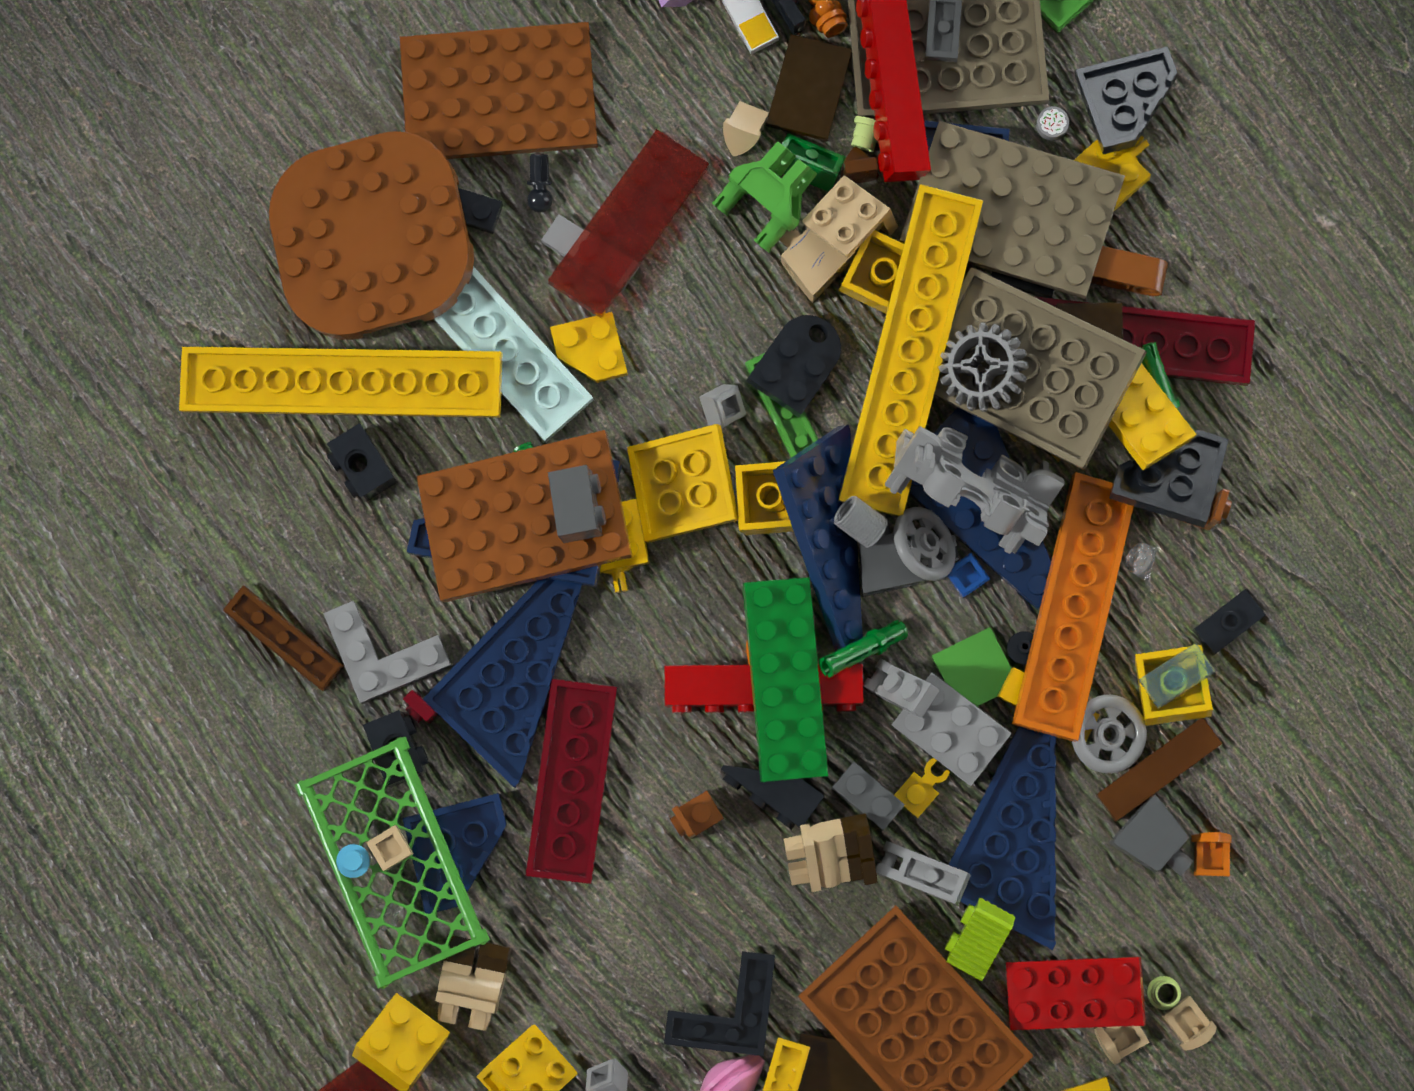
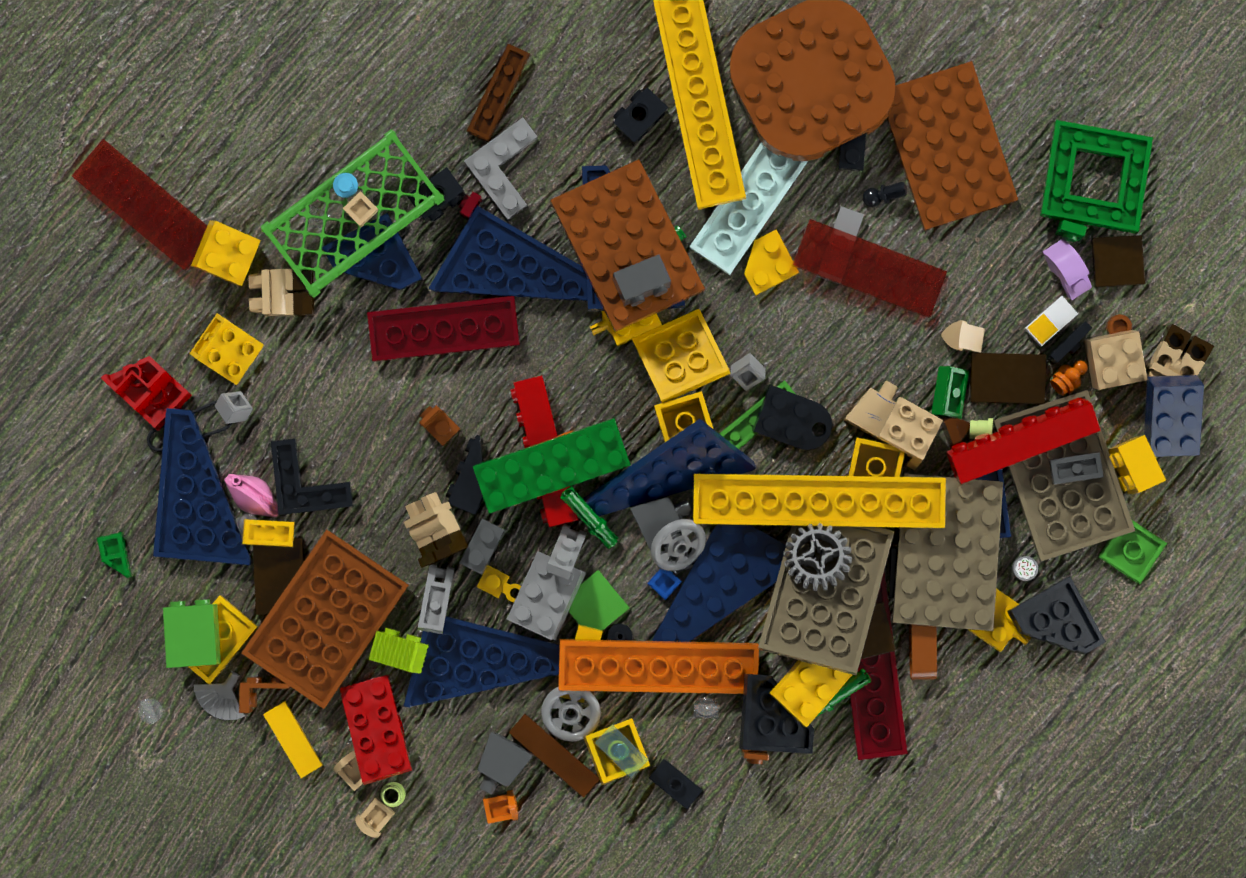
camera: 70 degrees right, 5 degrees up
(776, 194) = (917, 370): bright green connector -> none
(860, 521) = (680, 493): light grey piece -> none
(1007, 497) = (724, 597): light grey gear -> none

